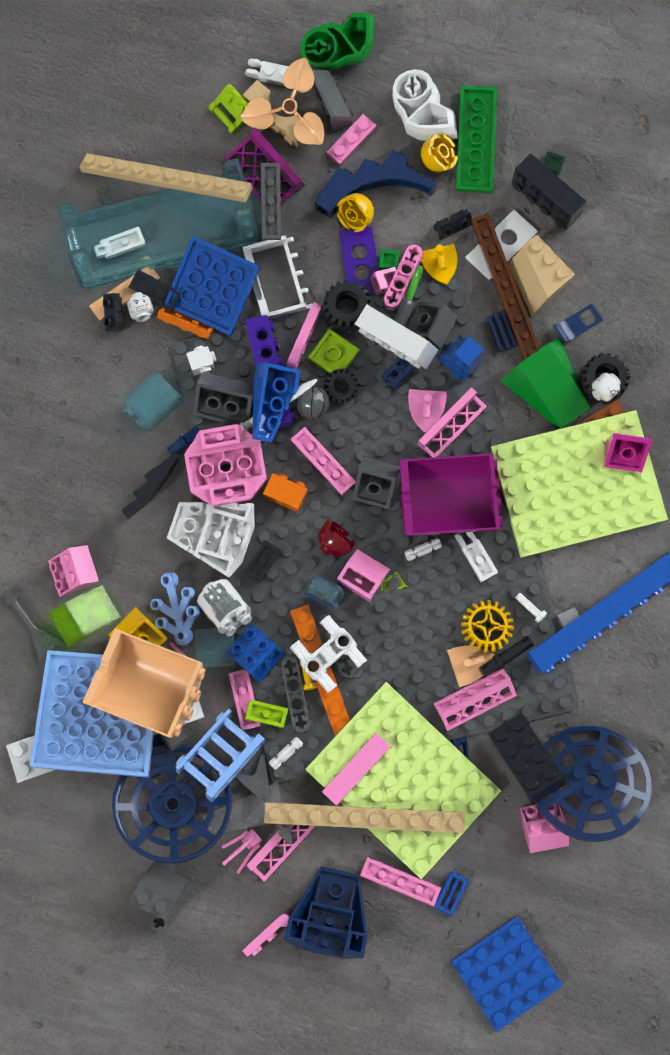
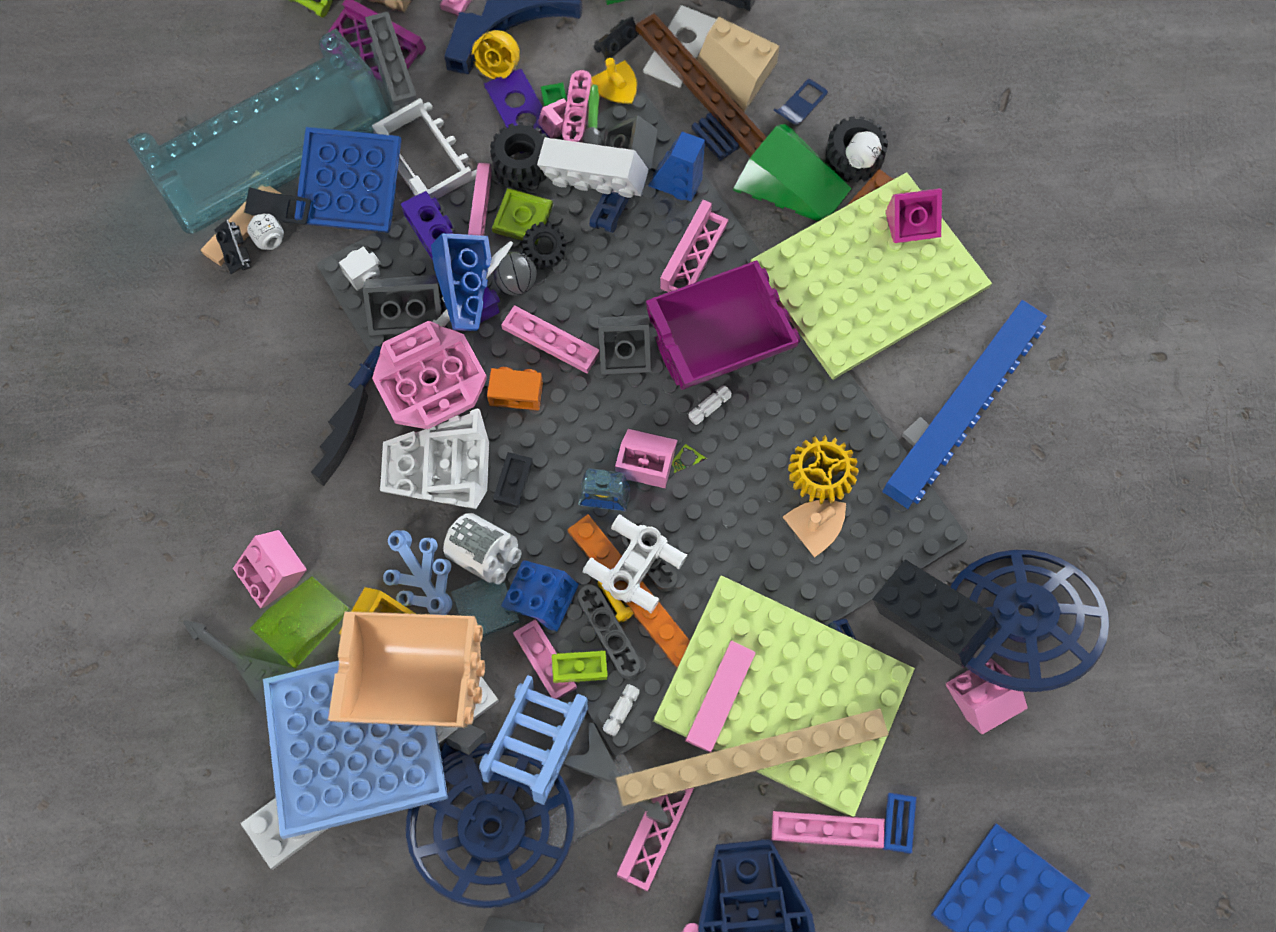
camera: 20 degrees left, 10 degrees down
(120, 244) = (219, 168): white hinge -> none
(152, 401) = (312, 334): clear light blue brick -> none
(166, 177) = (255, 74): tan plate -> none
(185, 323) = (327, 234): orange plate -> none
(250, 840) = (611, 840): bright pink plant -> none
(334, 539) = (595, 425): dark red cylinder -> none
(426, 407) = (655, 242): bright pink shield -> none
(473, 696) = (838, 558): bright pink fence -> none
(477, 557) = (779, 392): white hinge -> none
(498, 661) = (853, 507): black pin -> none
(531, 608) = (875, 435): white piece -> none

